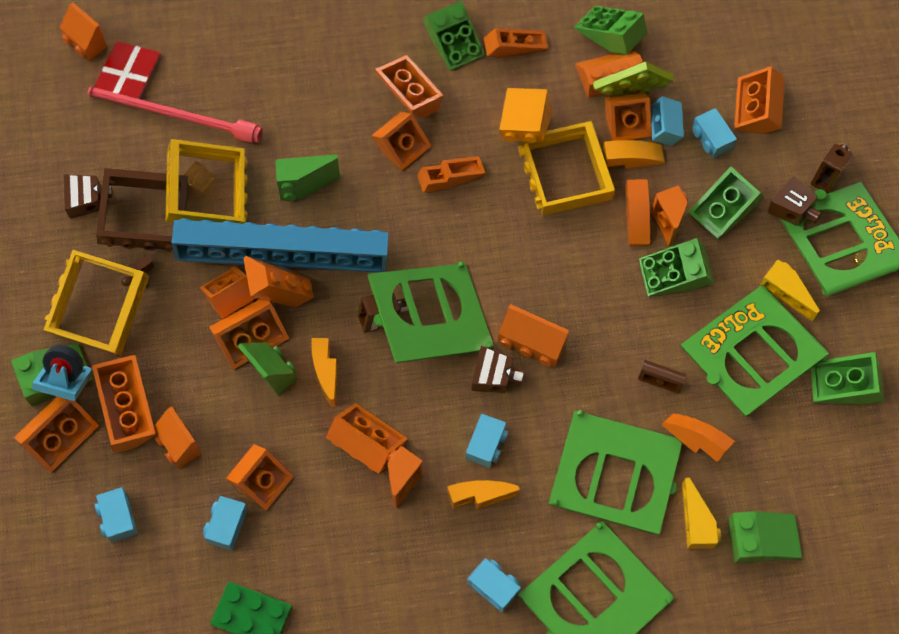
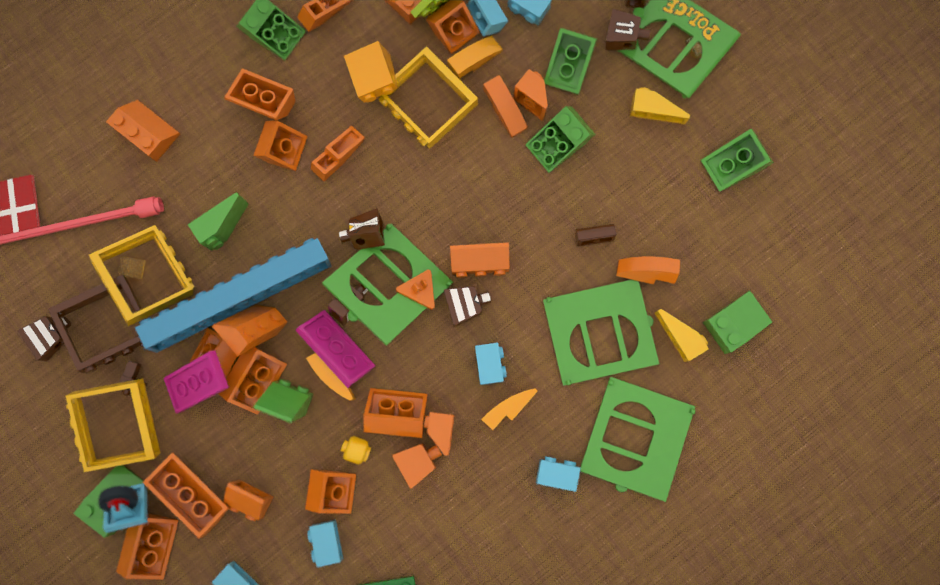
camera: 25 degrees left, 15 degrees up
(195, 303) = (195, 382): none -> dark pink tile
(284, 64) = (143, 128): none -> orange slope
(307, 451) = (355, 450): none -> yellow head
(344, 345) = (335, 348): none -> dark pink tile
(359, 495) = (416, 462): none -> orange torso
(436, 253) = (365, 230): none -> reddish brown torso
(457, 334) = (419, 289): none -> orange piece
(743, 319) = (623, 174): bright green door -> none

